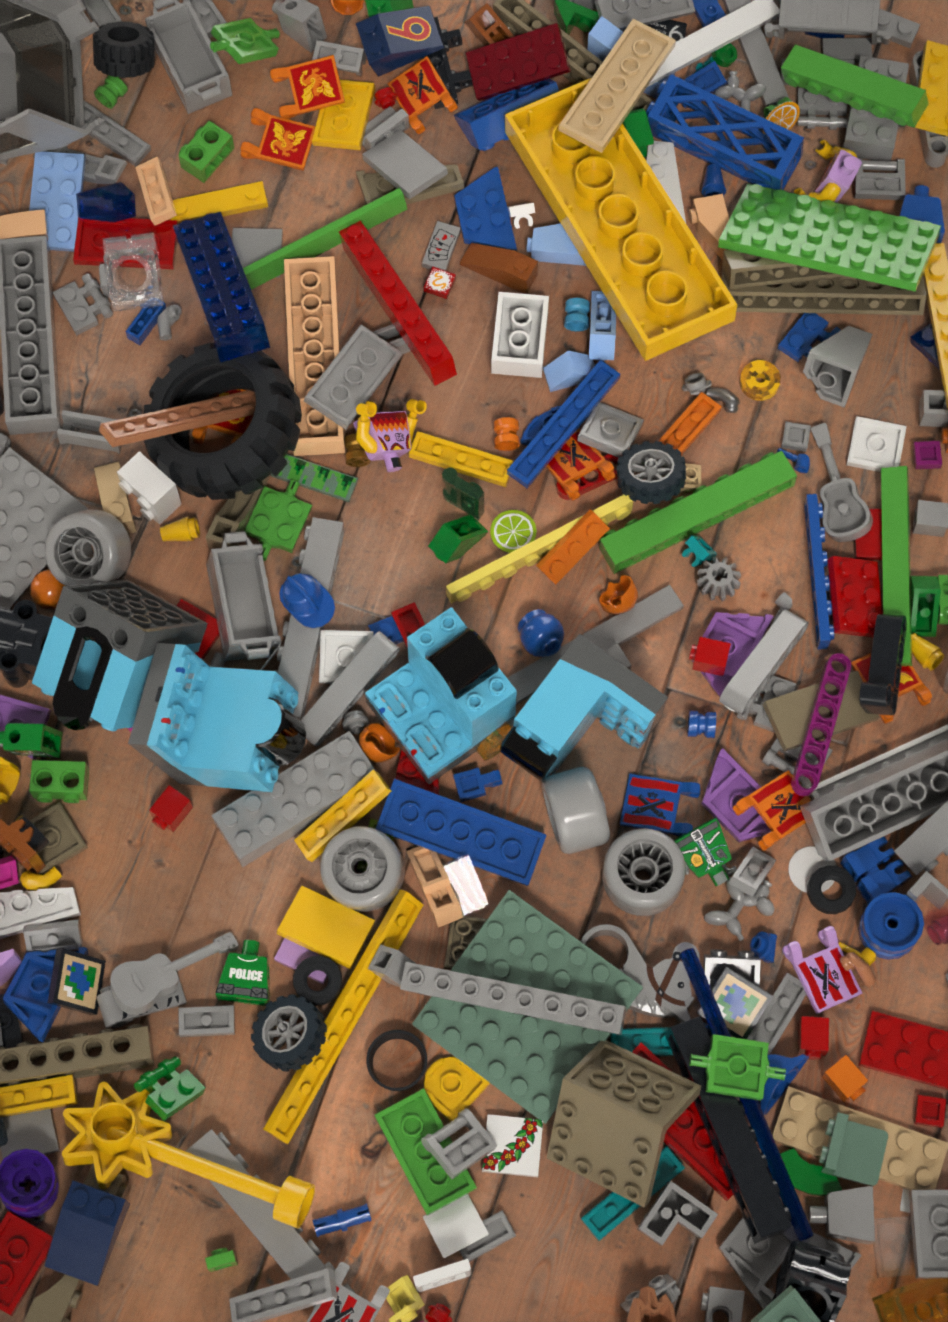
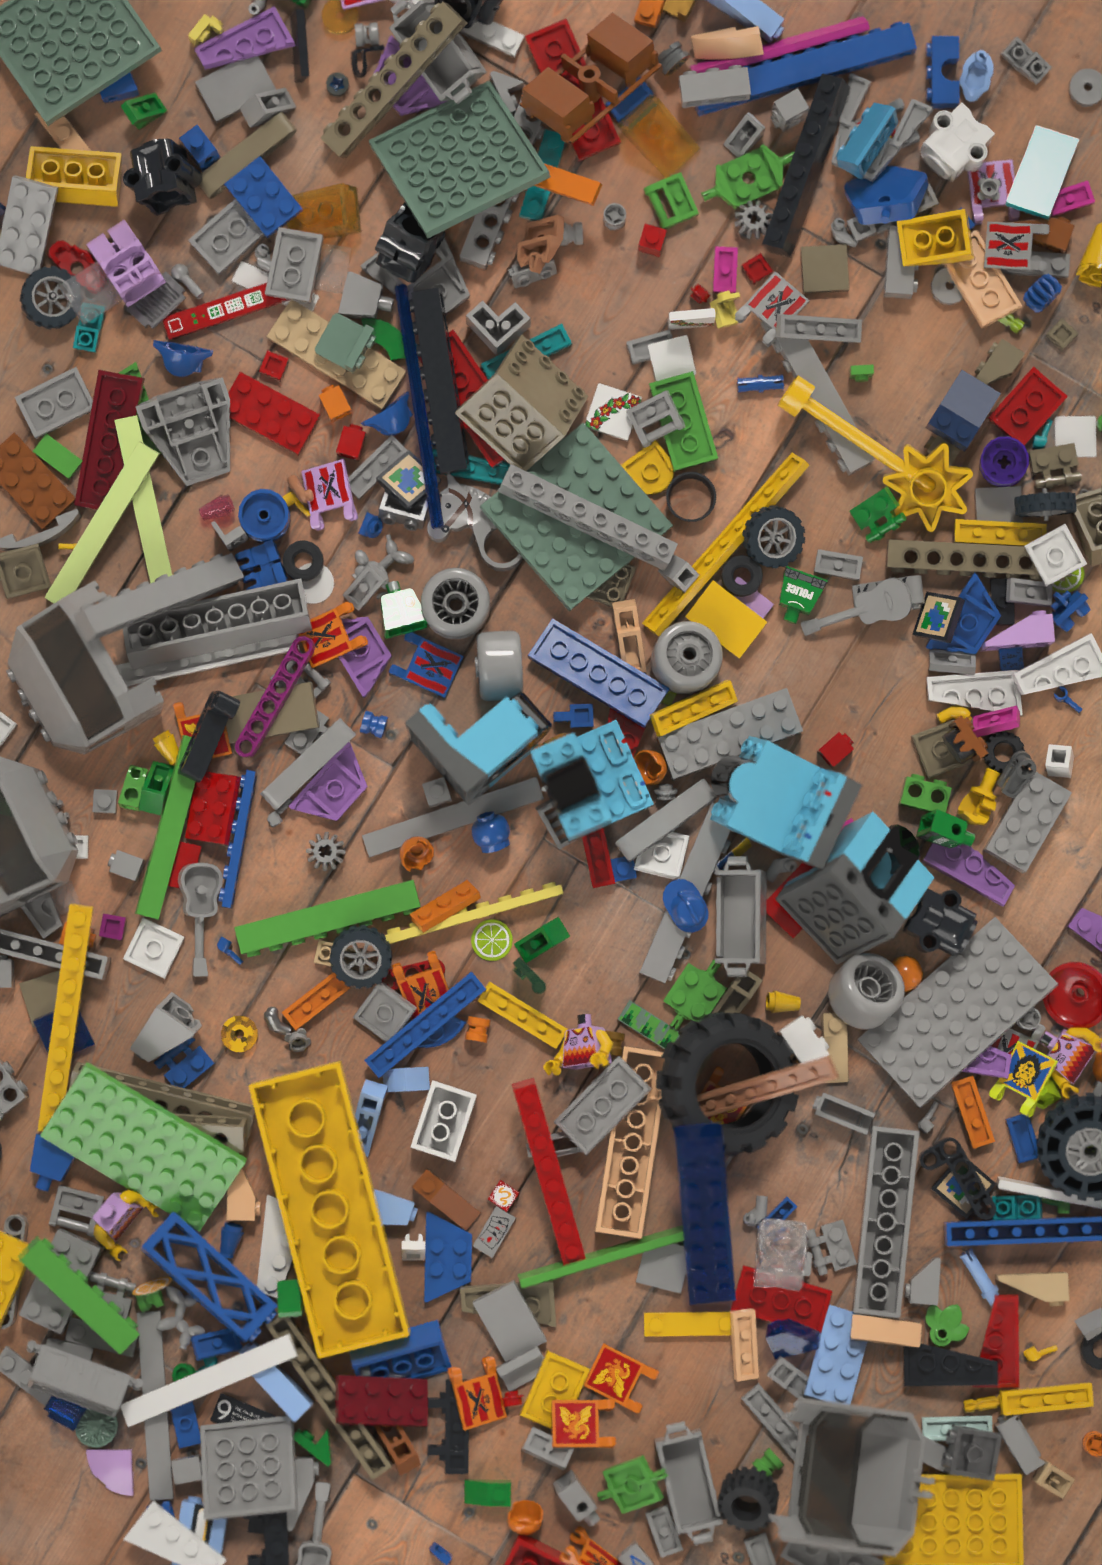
camera: 170 degrees left, 15 degrees up
(210, 153) = (686, 1374): bright green brick -> none
(399, 38) = (486, 1456): dark blue slope -> none
(466, 884) = (603, 629): tile -> none
(577, 314) = (383, 1136): dark azure wheel -> none
(617, 85) = (298, 1338): tan plate -> none
(700, 548) = (334, 882): teal tile -> none
(710, 656) = (353, 777): red brick -> none
(737, 1067) = (422, 421): bright green plate -> none
(796, 436) = (222, 972): light grey tile -> none

